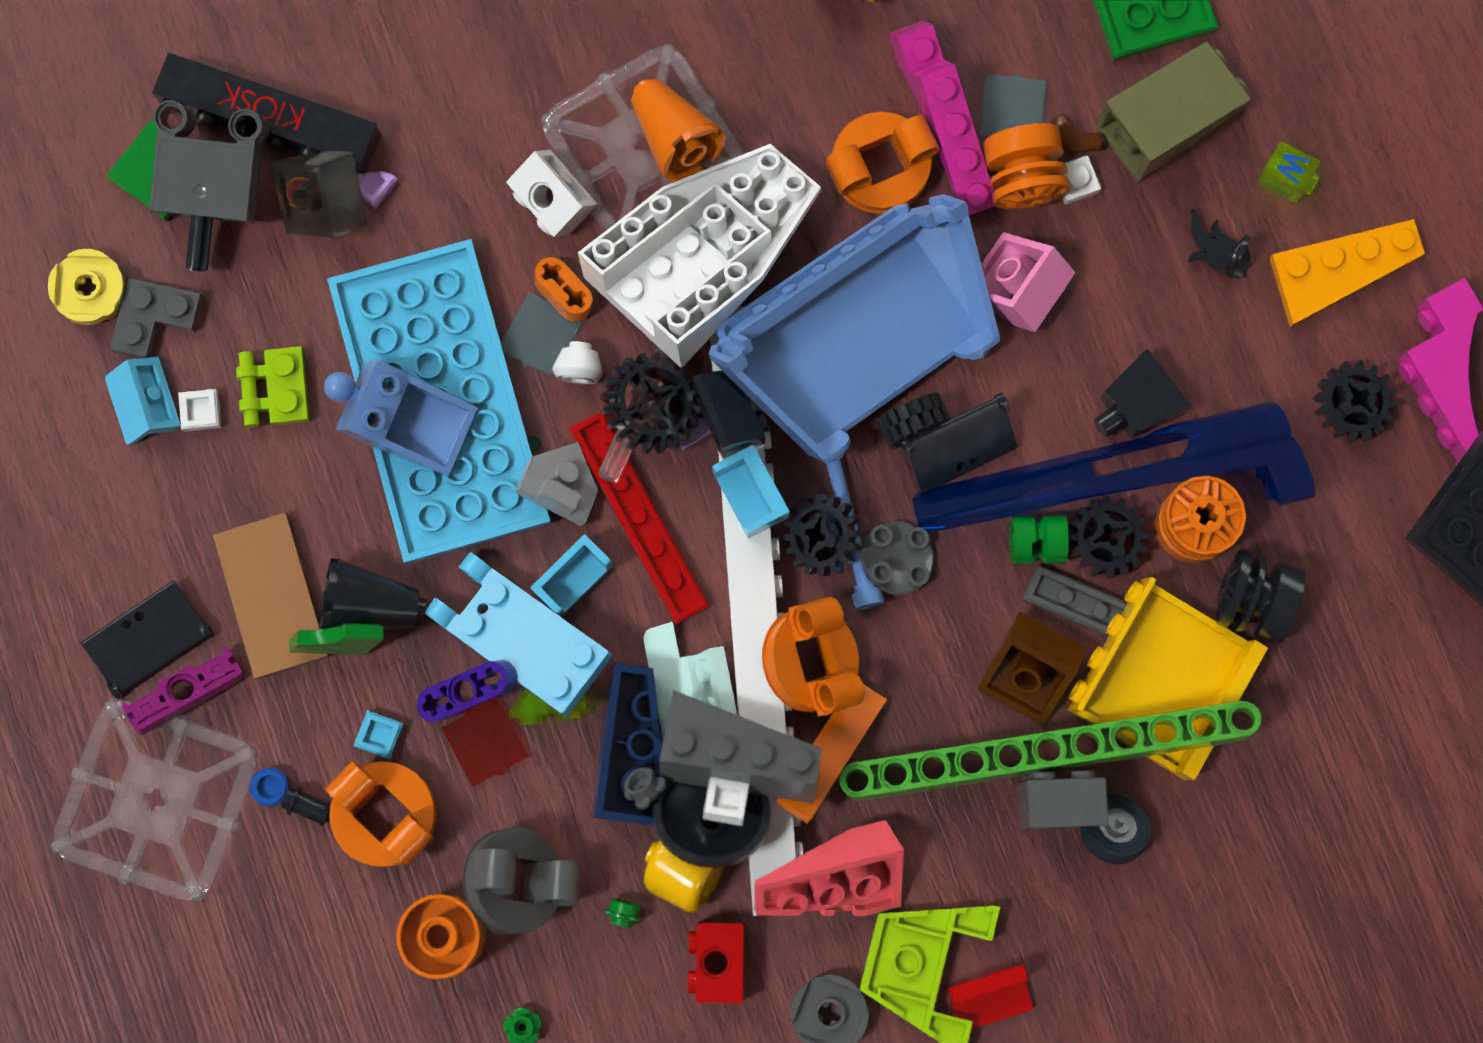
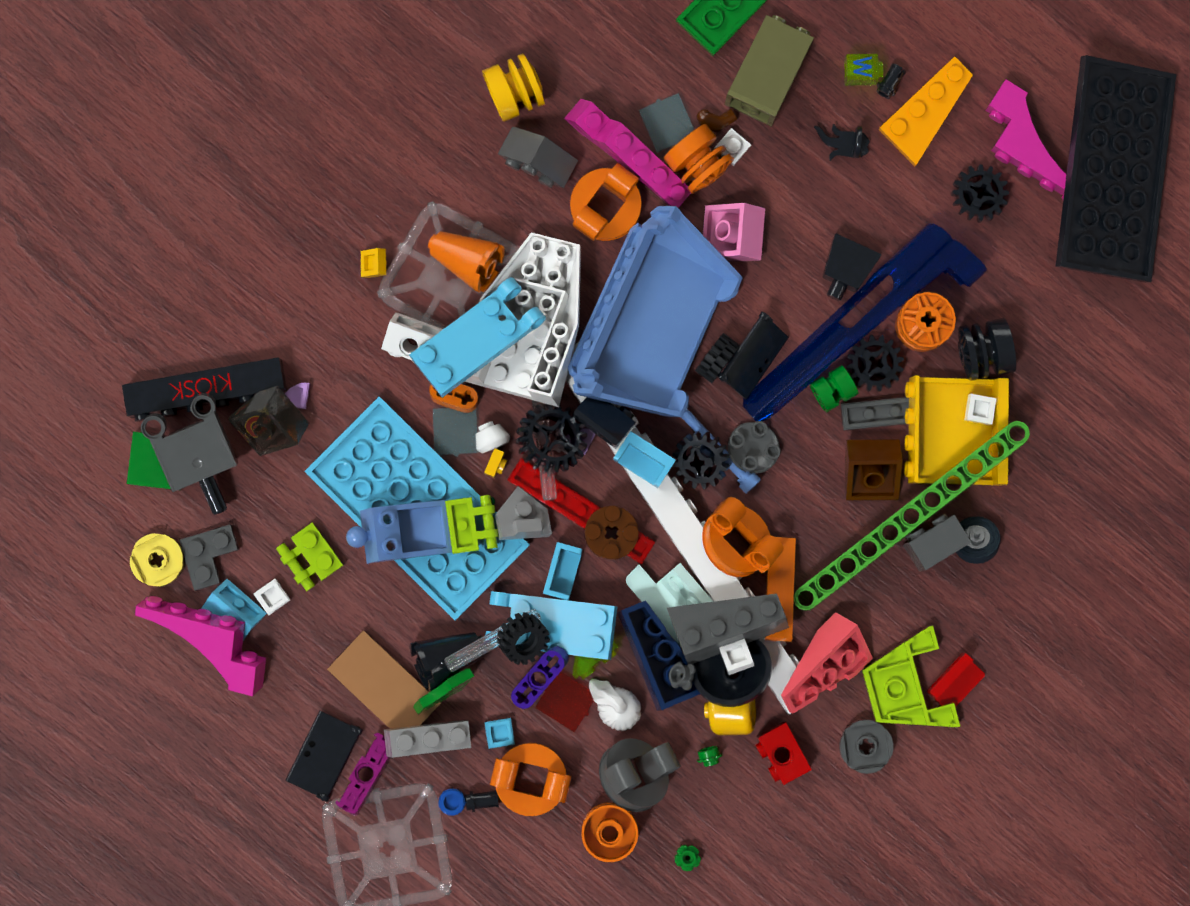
camera: 30 degrees left, 5 degrees up
(97, 417) = (214, 636): none -> dark pink arch
(282, 688) = (427, 738): none -> light grey brick
(432, 609) = (477, 648): none -> clear axle
(471, 645) = (514, 630): none -> black tyre
(480, 449) = (463, 527): none -> lime plate
(542, 782) = (615, 705): none -> white hair
(558, 78) = (373, 263): none -> yellow plate
(566, 399) = (496, 463): none -> yellow plate
(625, 227) = (474, 339): none -> medium azure hinge
(671, 543) = (609, 548): none -> reddish brown brick
(832, 57) = (537, 157): none -> dark grey brick
(1210, 667) = (980, 409): none -> white plate
(1308, 211) = (890, 82): none -> black pin

